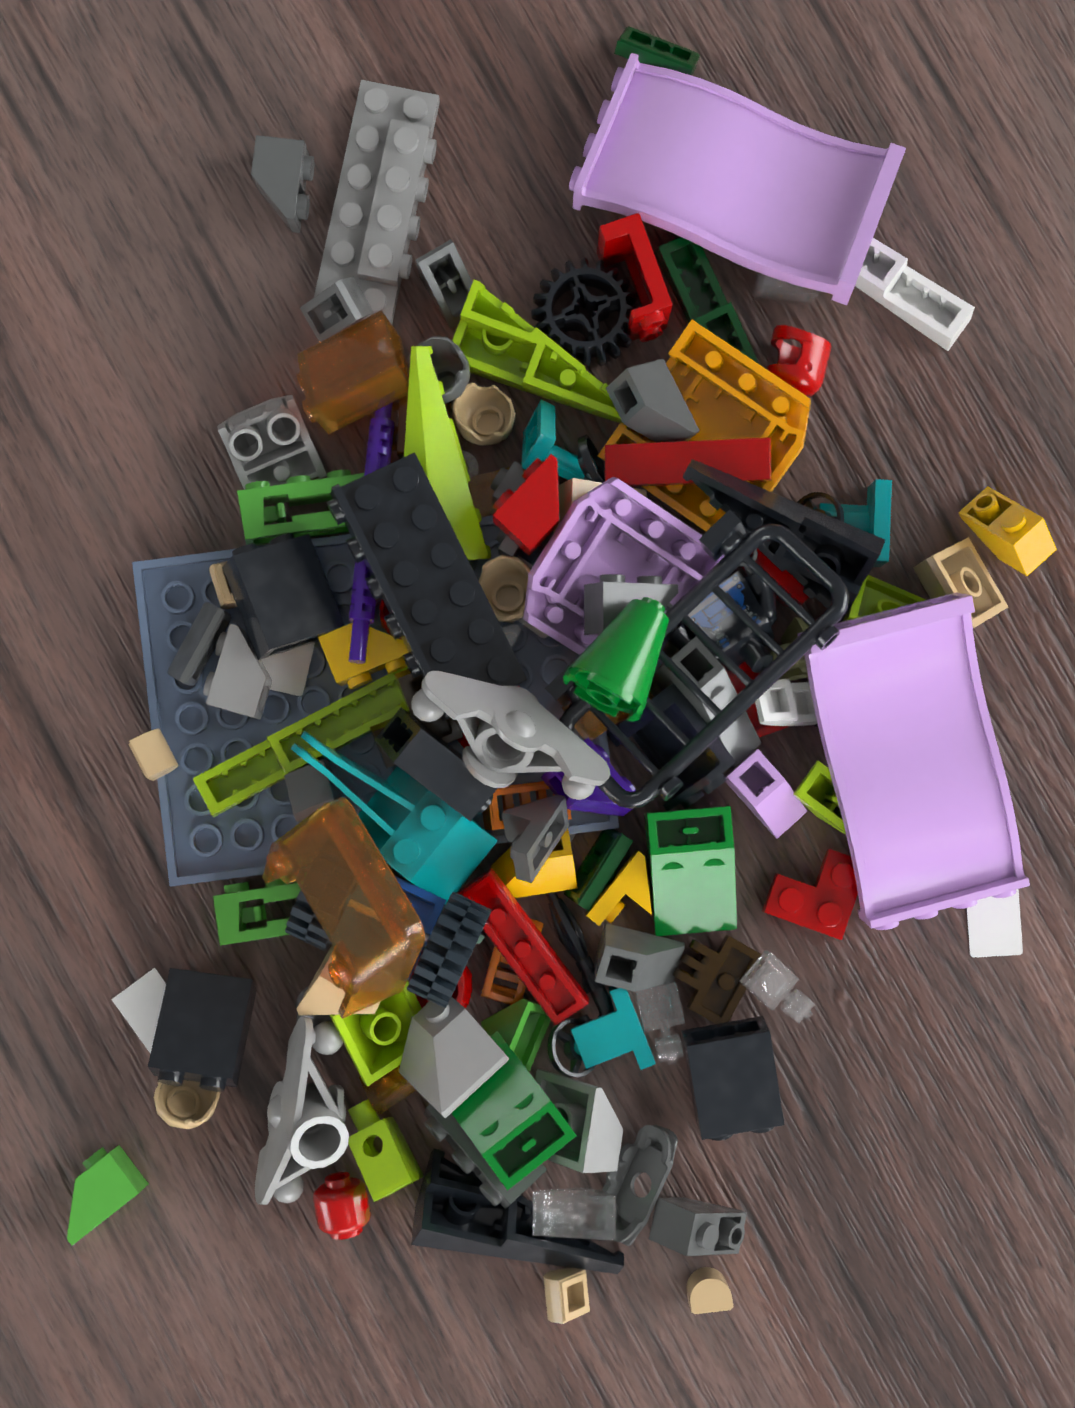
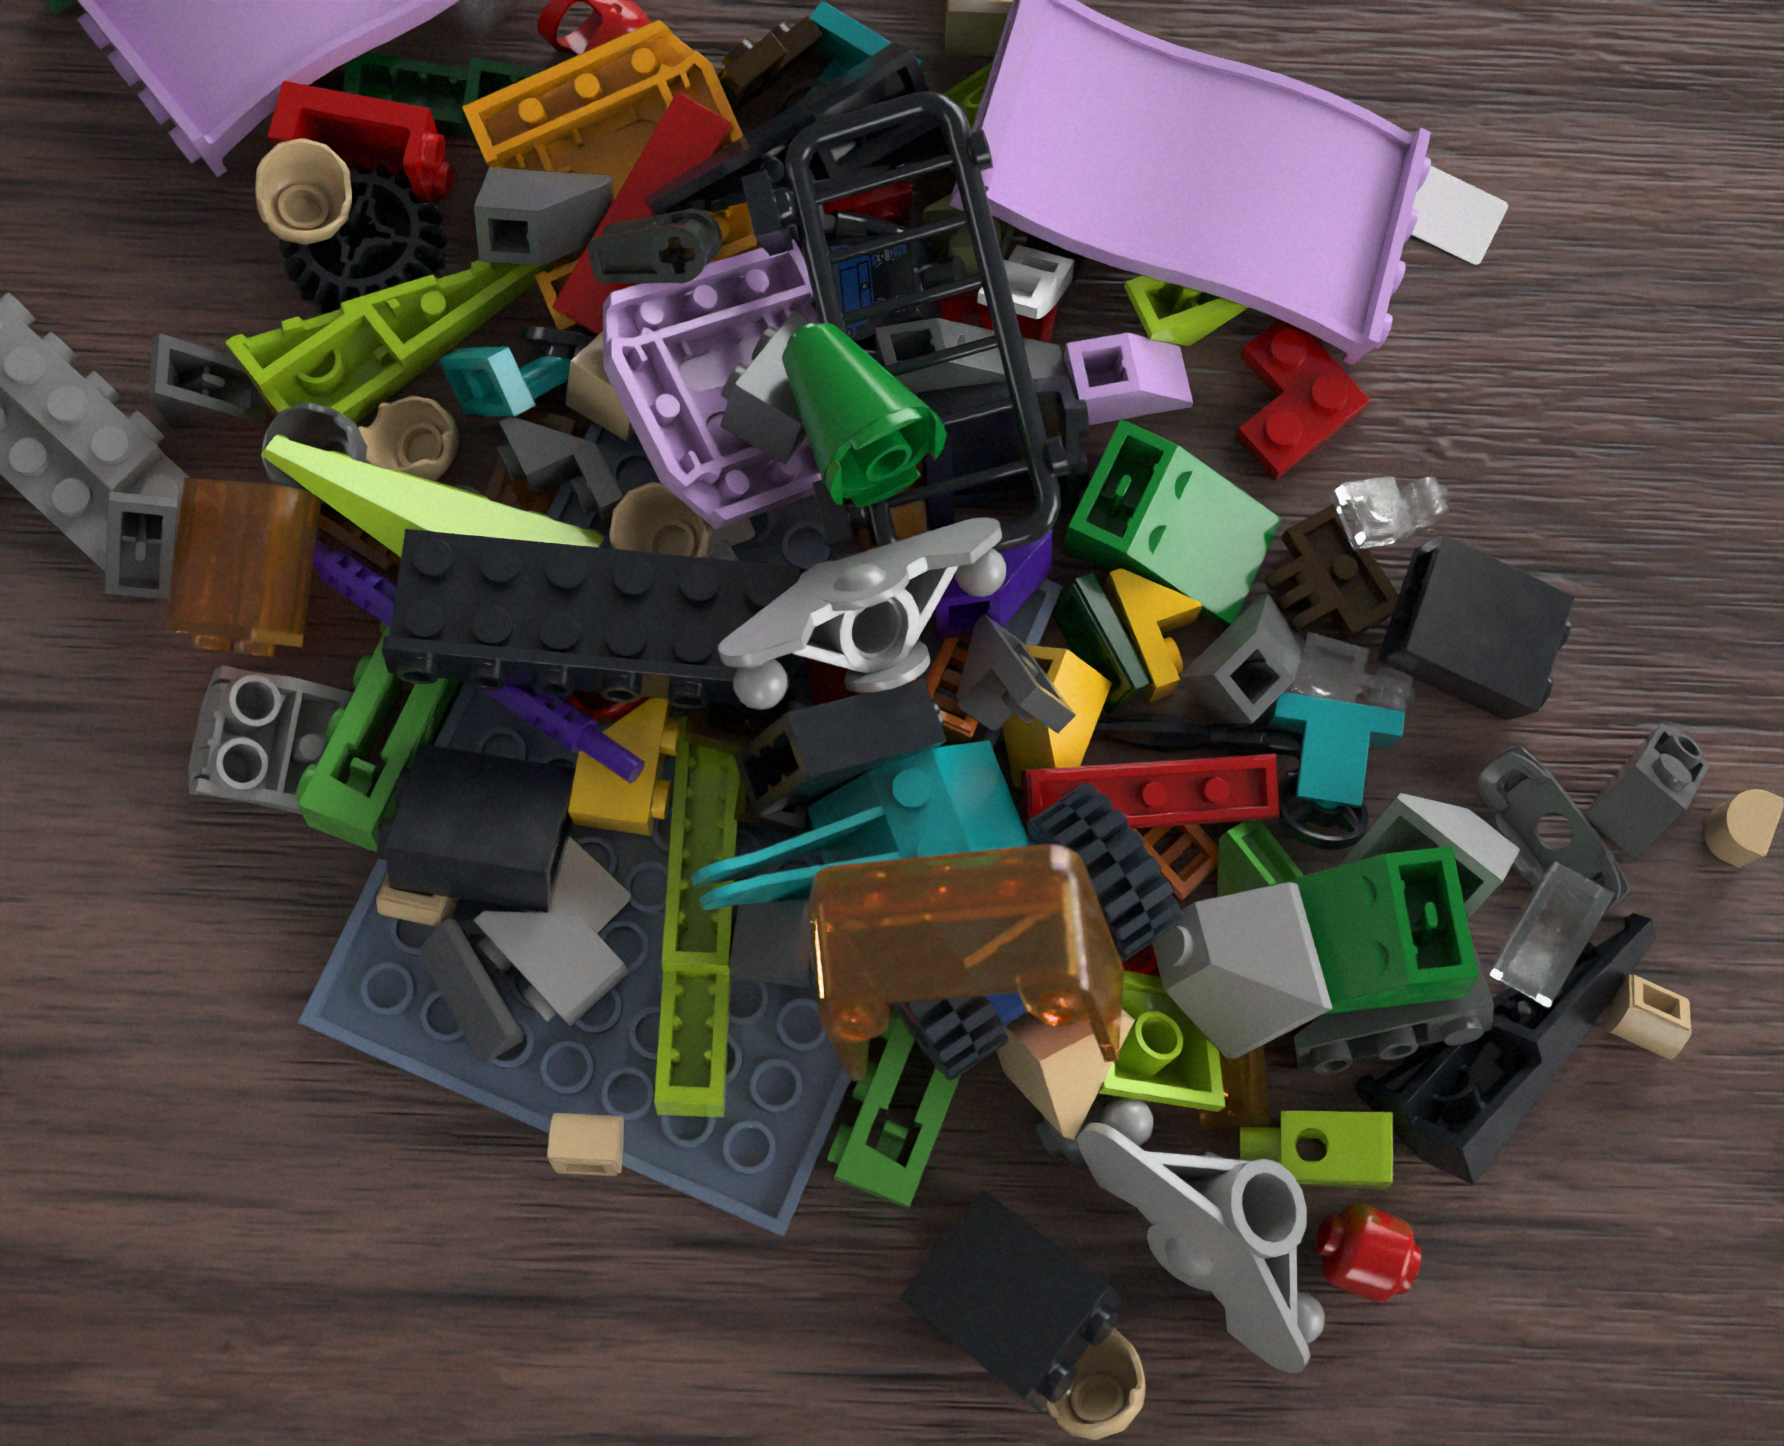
camera: 65 degrees left, 10 degrees down
(142, 1005) = (936, 1379): white sticker -> none
(533, 508) = (582, 426): red slope -> none
(582, 266) = (303, 191): none -> tan hair
(663, 486) = (649, 248): none -> pearl dark grey piece
(820, 466) = (756, 67): none -> dark brown plate

